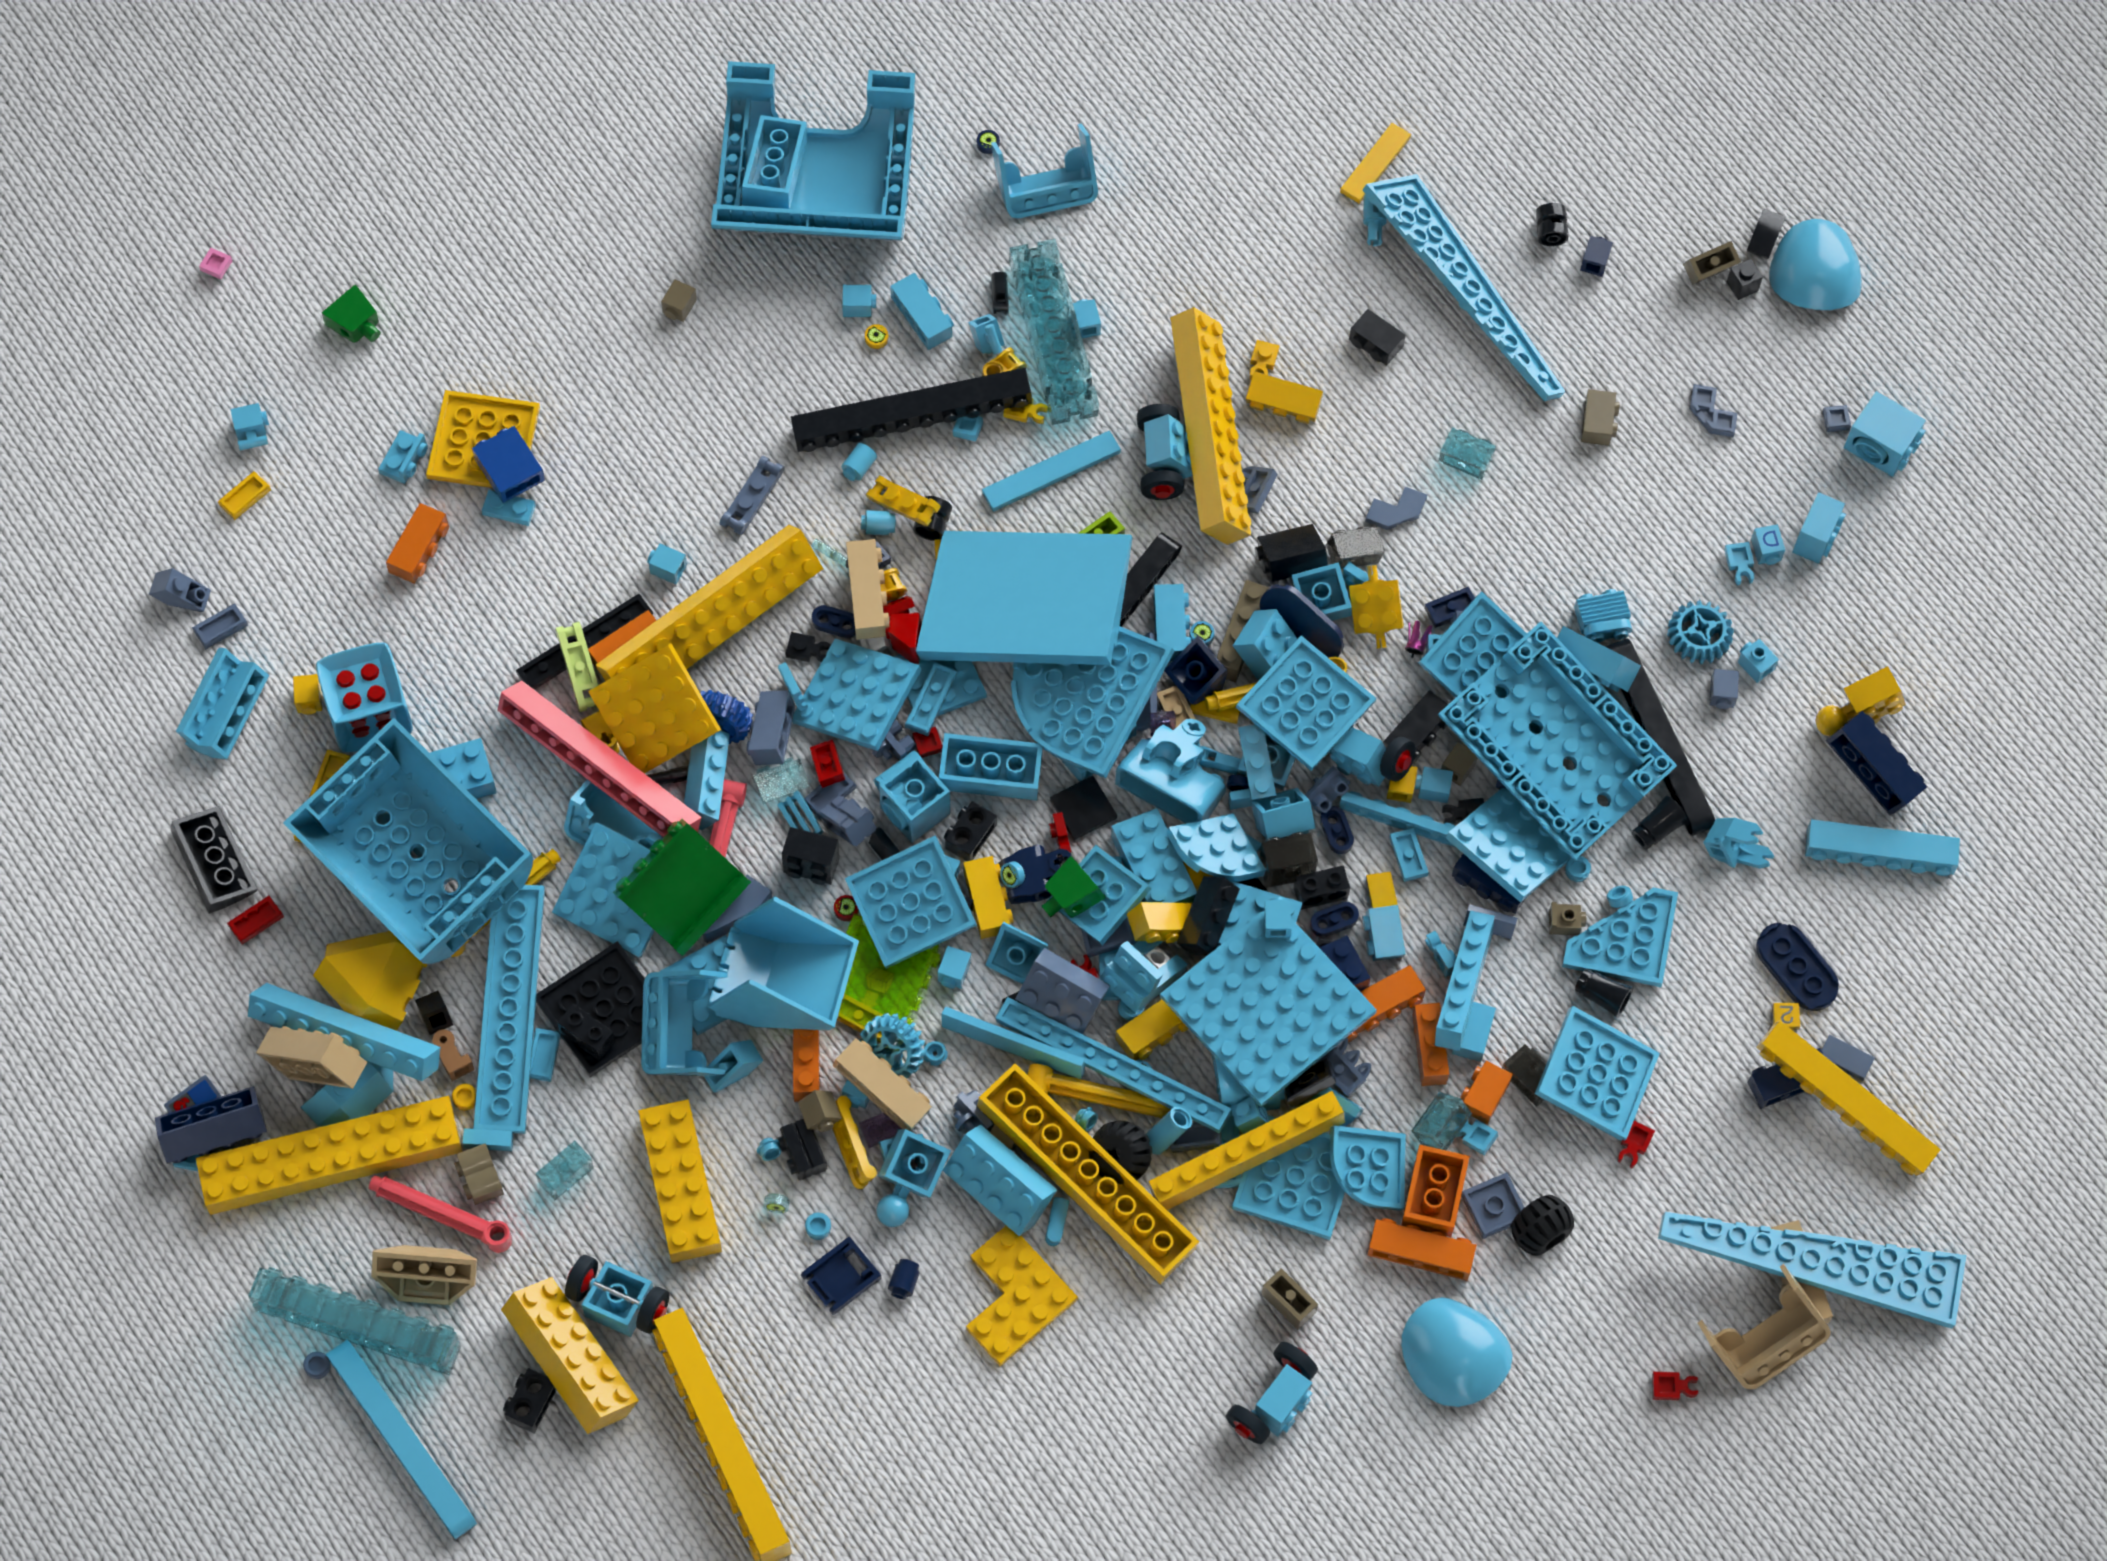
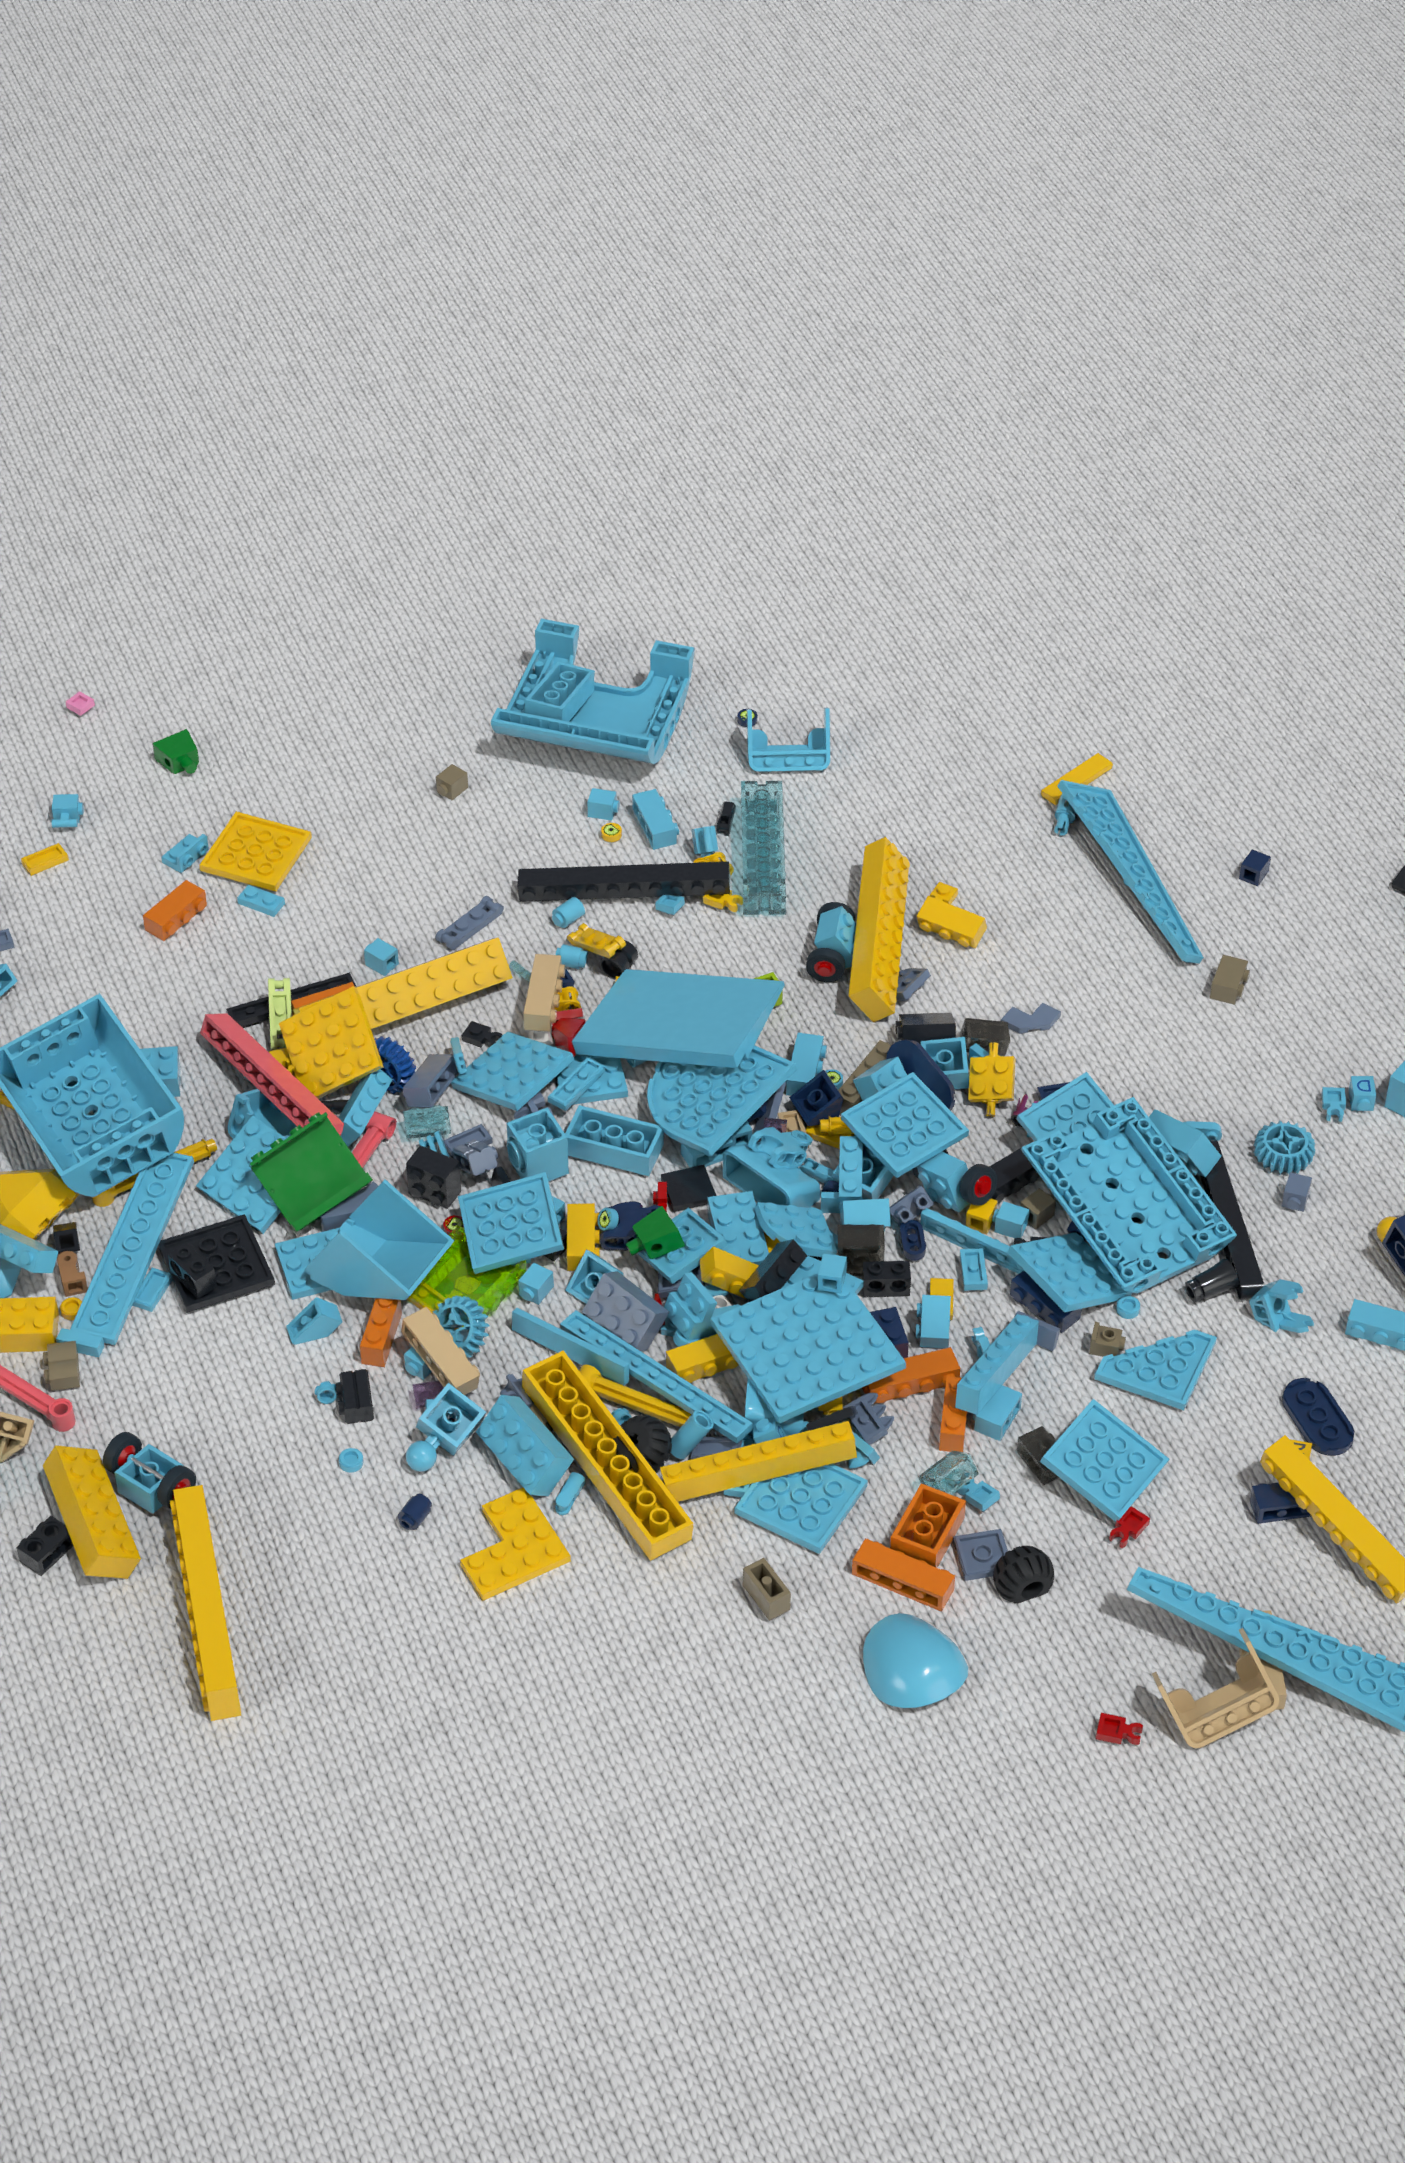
camera: 15 degrees right, 20 degrees down
(307, 694) = (44, 998): yellow brick -> none
(362, 693) = (83, 976): medium azure piece -> none
(508, 464) = (269, 864): blue brick -> none
(564, 1170) = (138, 1374): clear light blue brick -> none
(669, 1022) = (270, 1274): medium azure windscreen -> none
(680, 1181) = (237, 1401): yellow brick -> none
(776, 1203) = (318, 1434): clear light blue tile -> none
(819, 1110) = (379, 1364): dark tan brick -> none
(827, 763) = (471, 1116): red plate -> none
(836, 620) = (509, 1019): dark blue plate -> none
(837, 1279) = (353, 1503): dark blue container -> none
(851, 1146) = (399, 1399): yellow plate -> none
(928, 744) = (564, 1117): red plate -> none
(938, 1047) = (501, 1342): medium azure plate -> none
(975, 833) = (583, 1185): black brick -> none
(1051, 471) = (733, 945): medium azure tile -> none
(1087, 318) = (794, 844): medium azure brick -> none
(1148, 572) = (784, 1032): black beam -> none
(1282, 1399) = (733, 1666): brick -> none
(1332, 918) = (894, 1300): dark blue plate -> none
(1370, 1165) = (871, 1496): medium azure plate -> none
(1377, 337) = (1045, 894): black brick -> none
(1467, 453) = (1103, 987): clear light blue brick -> none
(1487, 1090) = (998, 1460): orange brick -> none
(1552, 224) = (1220, 839): black wheel -> none
(1601, 608) = (1198, 1112): medium azure brick -> none
(1604, 991) = (1129, 1402): black plant -> none
(1619, 896) = (1161, 1332): medium azure tile -> none
(1711, 263) = (1356, 885): dark tan brick -> none
(1714, 420) = (1334, 1000): sand blue tile -> none
(1744, 279) = (1384, 902): black brick -> none
(1757, 660) = (1333, 1176): medium azure brick -> none
(1847, 1057) = (1357, 1496): sand blue tile -> none

